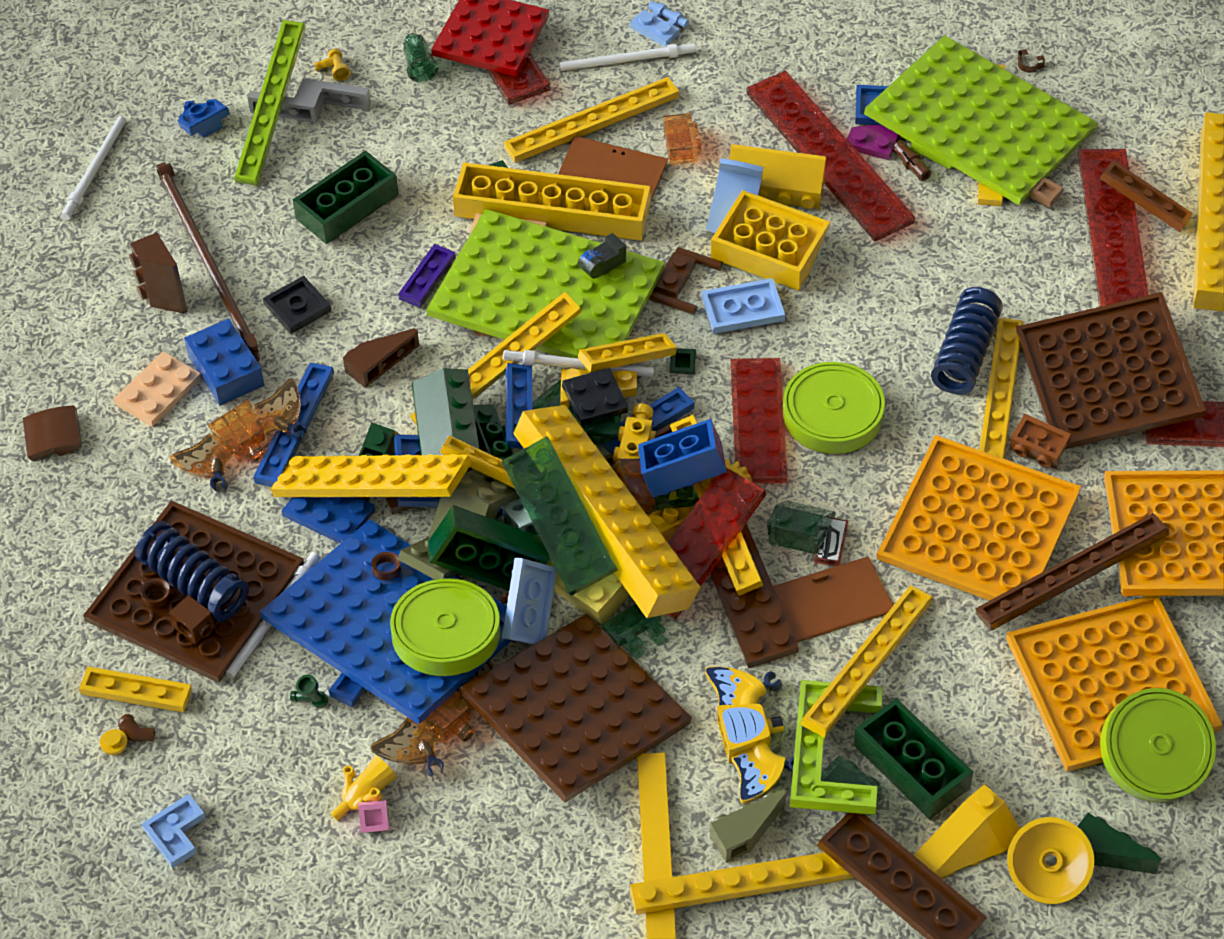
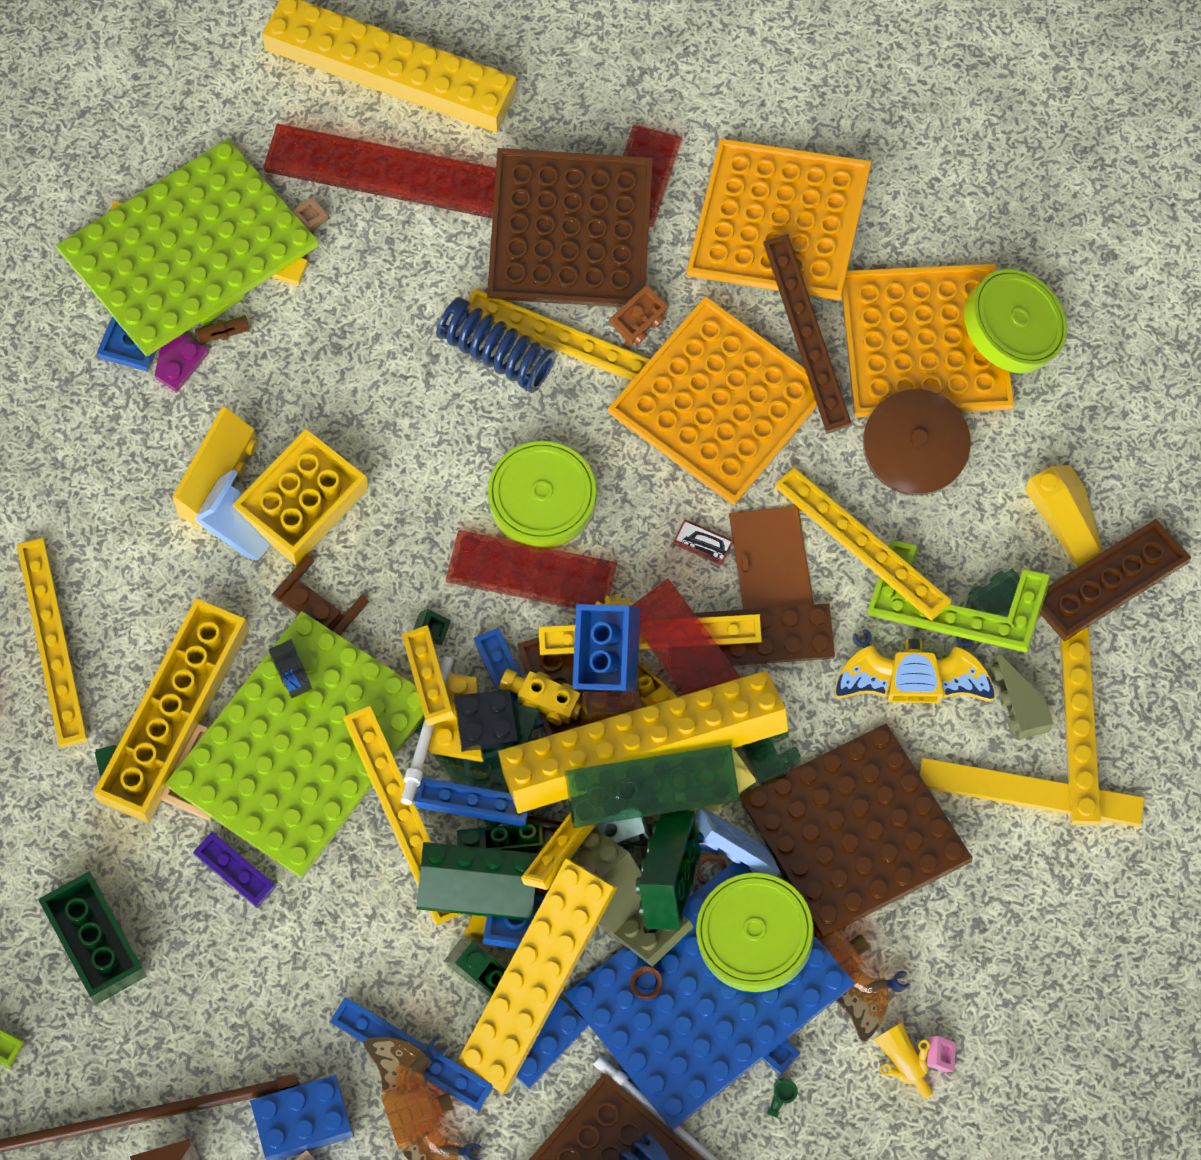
camera: 80 degrees left, 15 degrees up
(297, 304) = (234, 1023): black plate -> none
(377, 356) = (343, 952): reddish brown slope -> none
(598, 161) = (135, 643): dark orange container -> none
(681, 139) = (116, 553): clear orange brick -> none
(743, 306) = (377, 549): light blue plate -> none
(799, 526) = (683, 560): clear green slope -> none
(846, 171) = (184, 408): clear red plate -> none
(913, 758) = (981, 533): dark green brick -> none
(994, 690) = (916, 442): none -> reddish brown dish
(1028, 860) = (1124, 443): yellow dish -> none
(1030, 69) = (116, 163): reddish brown piece -> none
(1117, 848) = (1097, 403): dark green slope -> none
(1146, 196) = (352, 124): dark orange plate -> none

